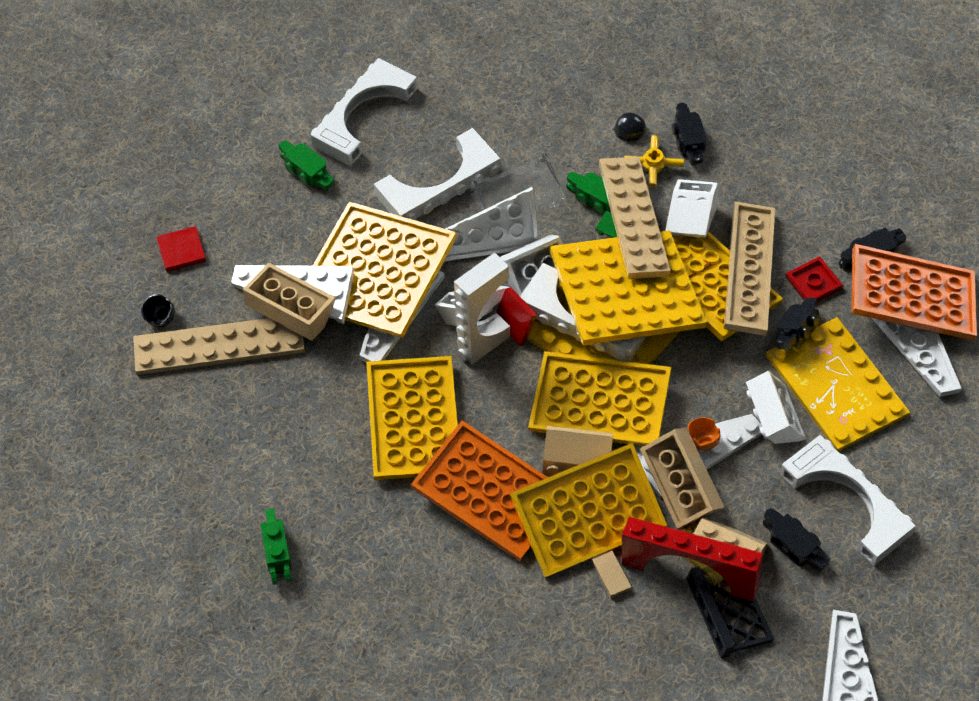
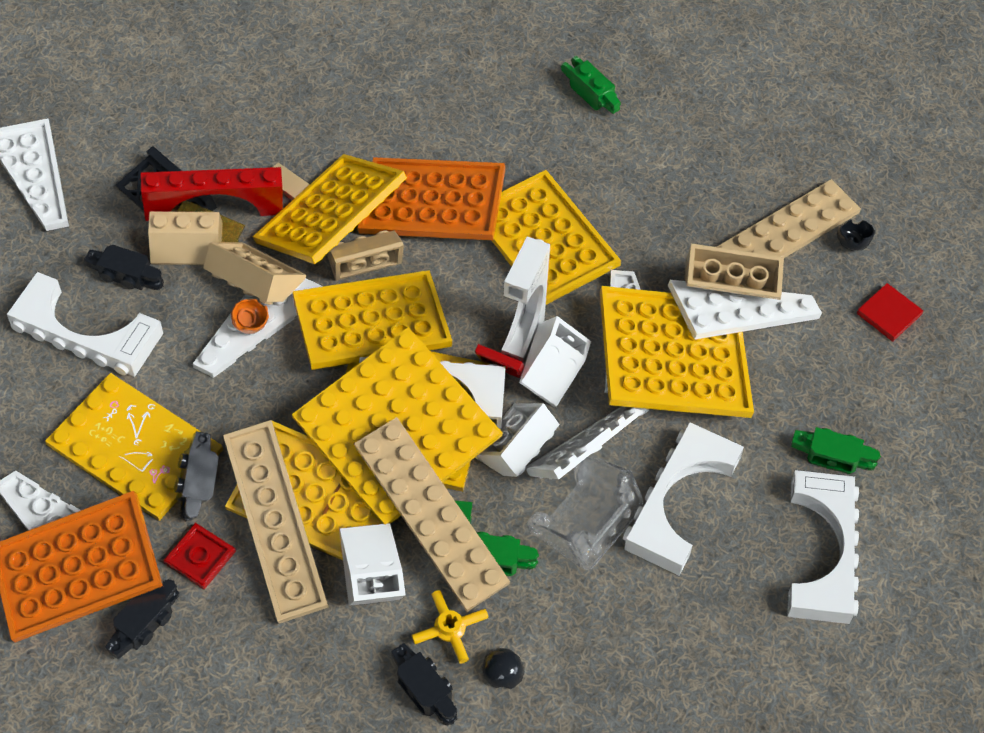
camera: 150 degrees right, 0 degrees up
(774, 409) = (186, 379): white slope -> none

